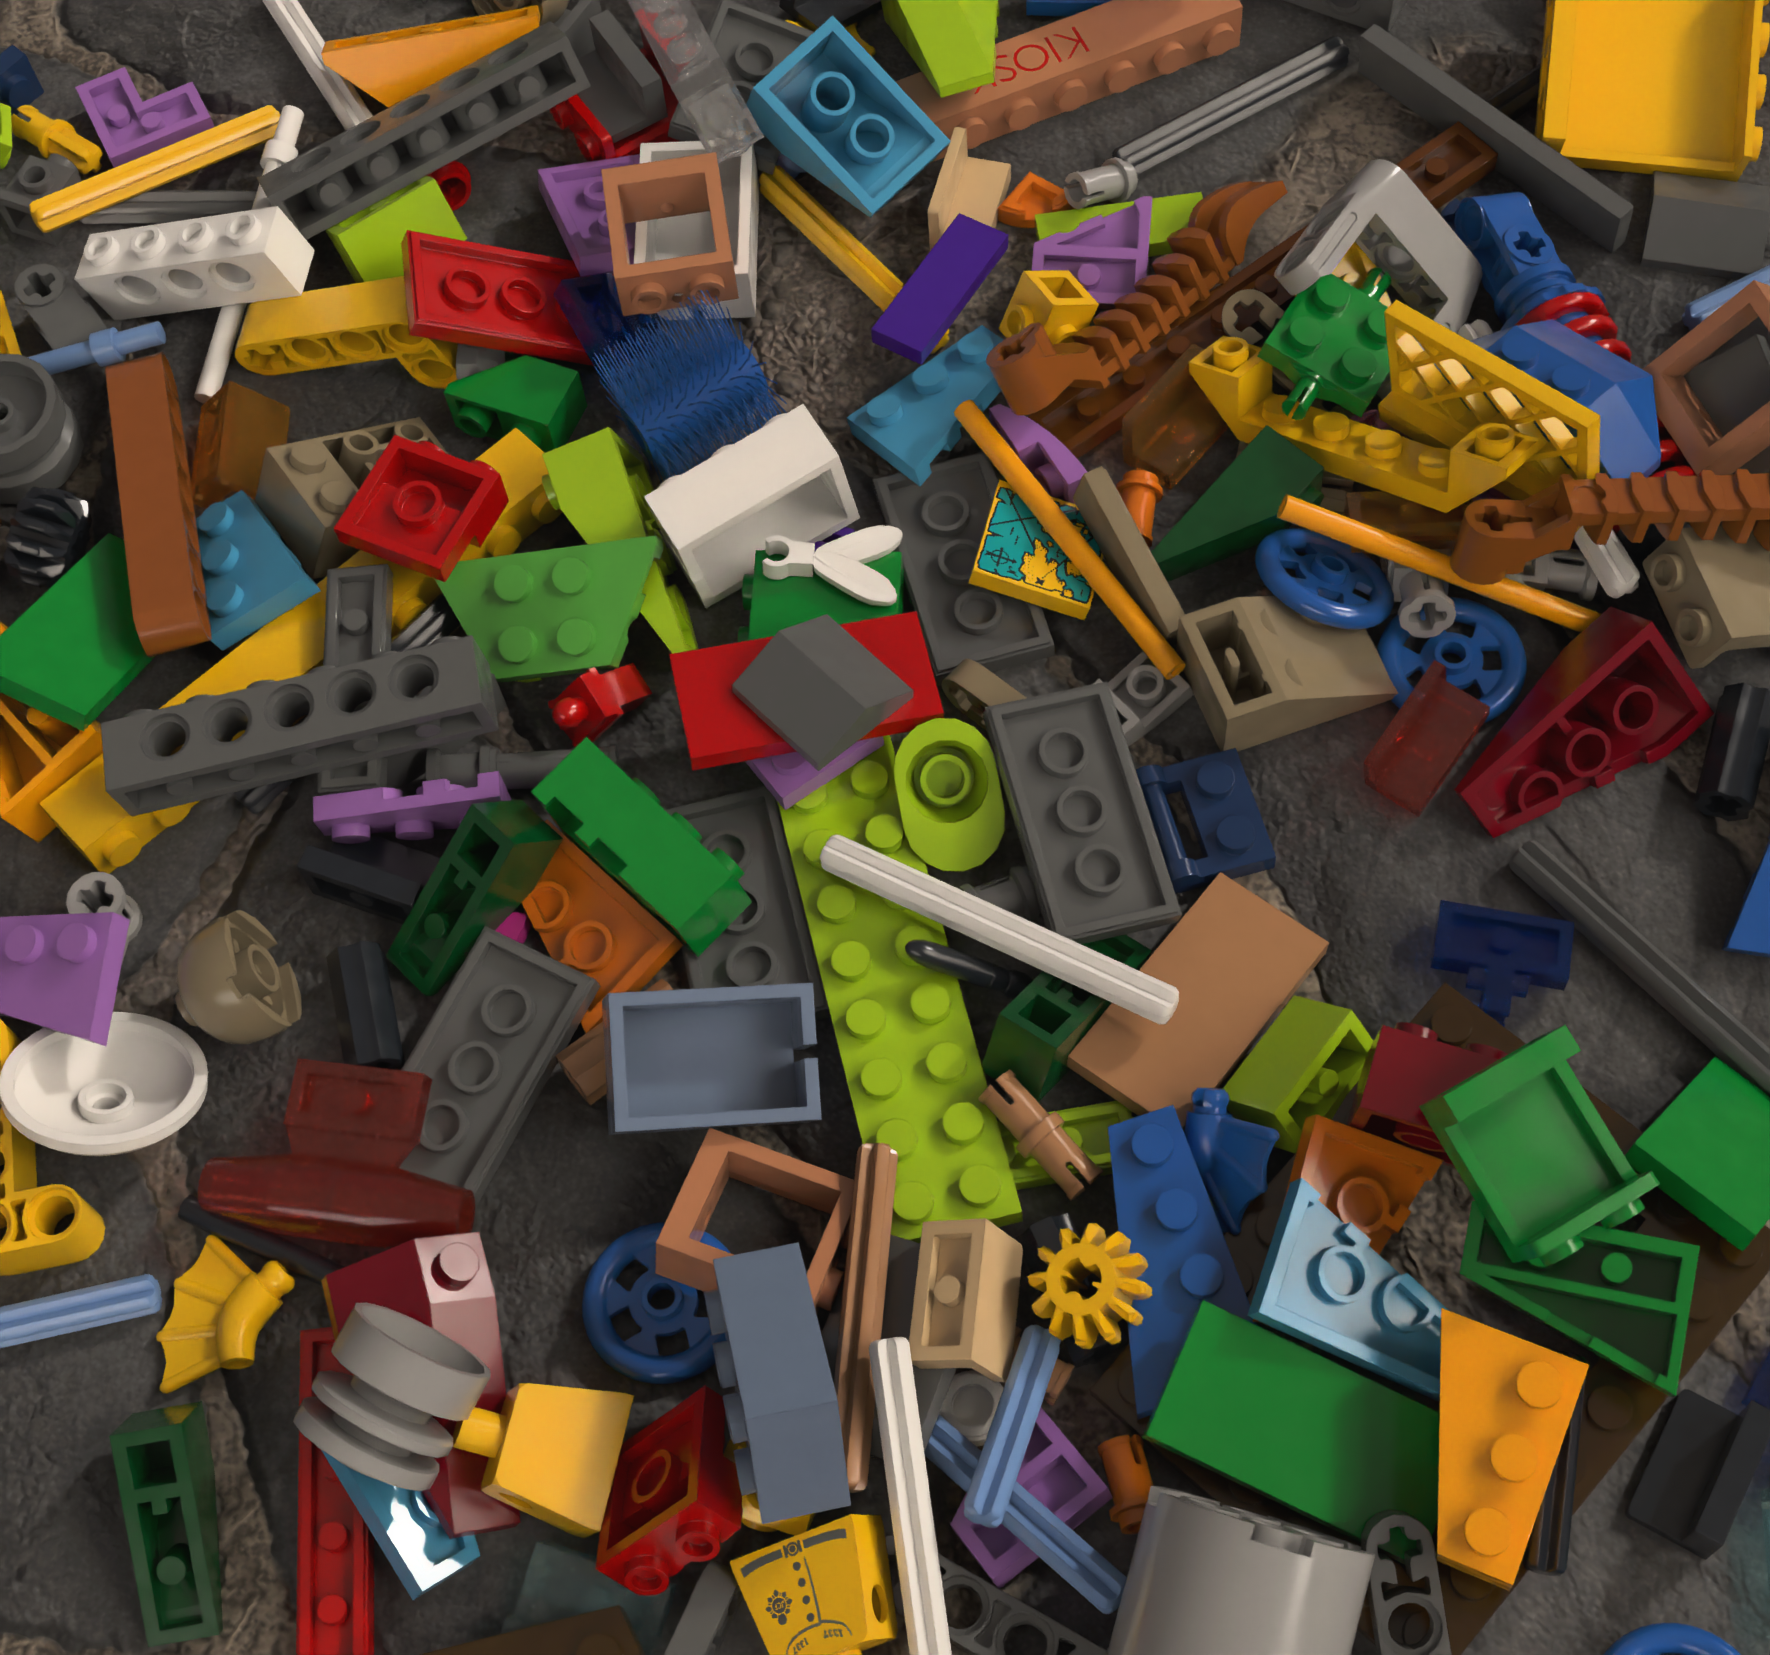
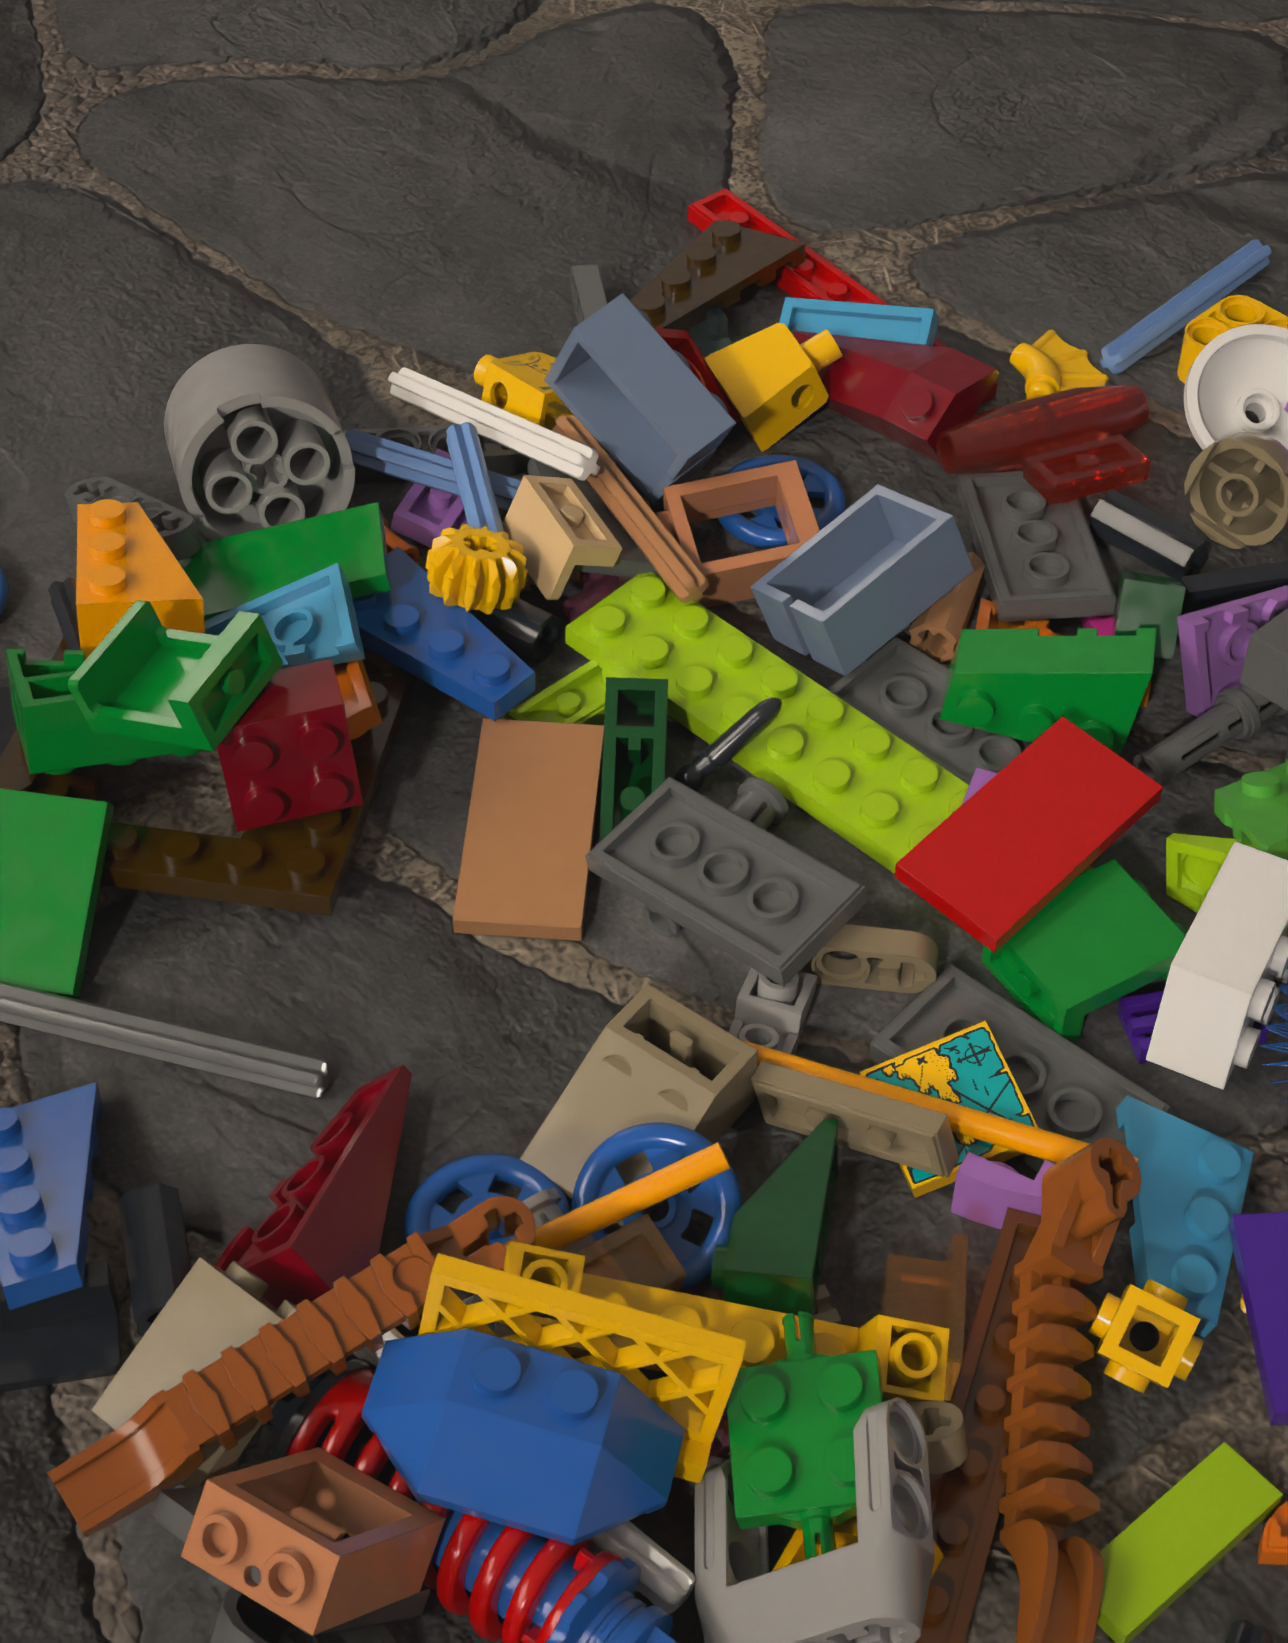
camera: 140 degrees right, 15 degrees down
(171, 1520) = (980, 278): dark green slope -> none
(385, 1411) = (884, 326): light grey wheel -> none
(598, 701) = (1198, 782): red piece -> none
(820, 689) = (1008, 819): dark grey slope -> none
(839, 562) = (1110, 957): white piece -> none
(949, 794) = (856, 846): lime piece -> none
(1000, 929) = (723, 757): white axle -> none
(1040, 1135) = (583, 670): medium nougat pin -> none
(1102, 252) = (1161, 1454): medium lavender wing -> none
(1110, 182) = (1243, 1572): light grey pin -> none
(1140, 494) = (904, 1221): orange pin -> none
(1220, 814) = (607, 979): dark blue plate -> none
(1228, 1155) = (457, 722): blue arm -> none
(1299, 1068) = (413, 797): lime brick -> none
(1424, 741) = (464, 1114): clear red panel -> none
(1501, 952) = (298, 981): clear blue hinge -> none

